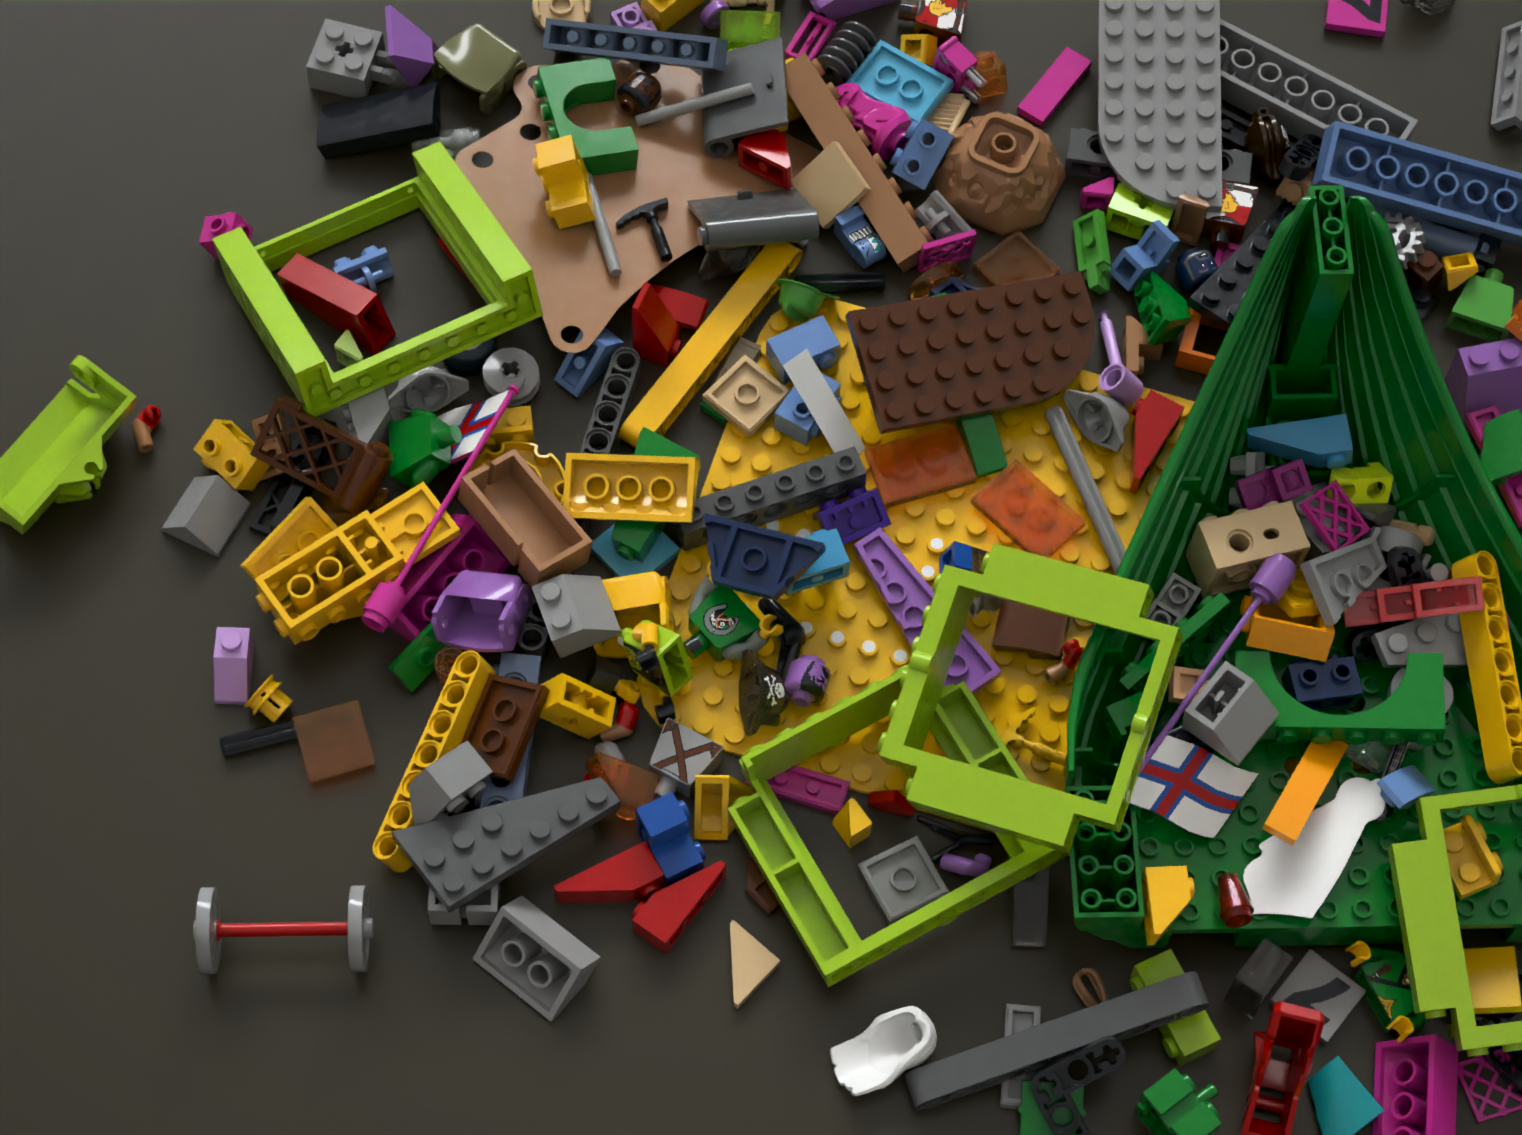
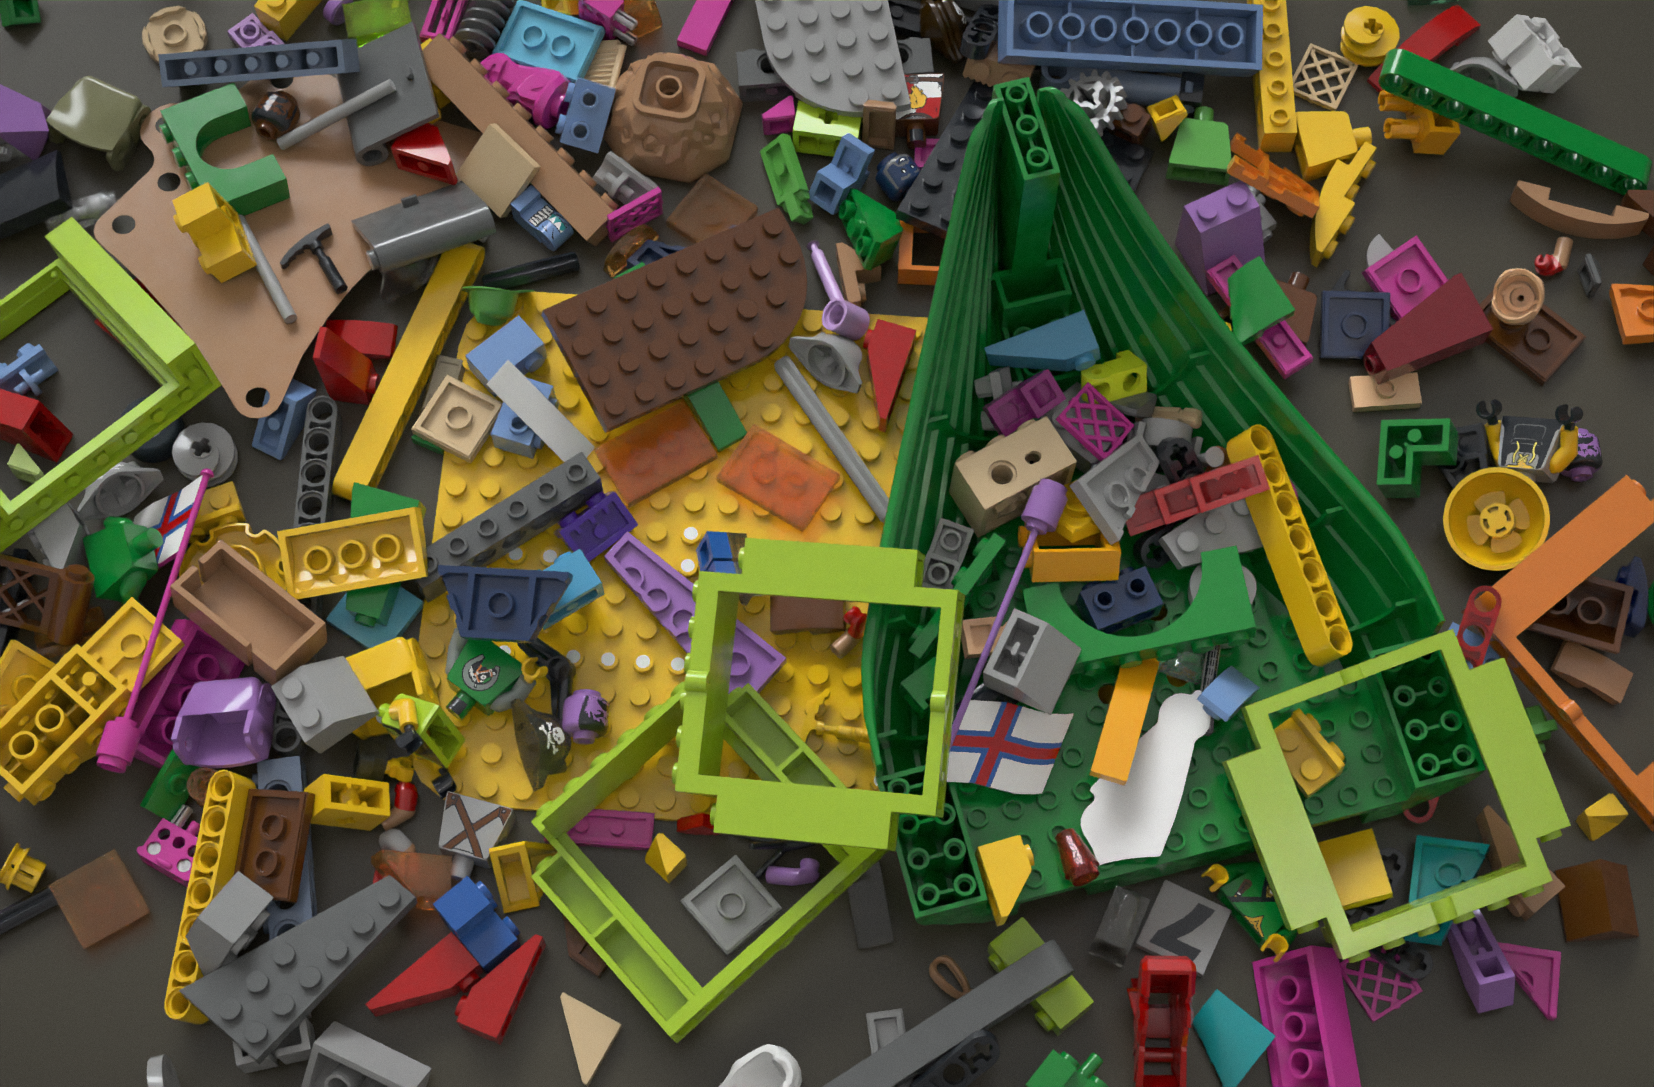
camera: 10 degrees left, 5 degrees up
(408, 712) = (165, 854): none -> dark pink piece

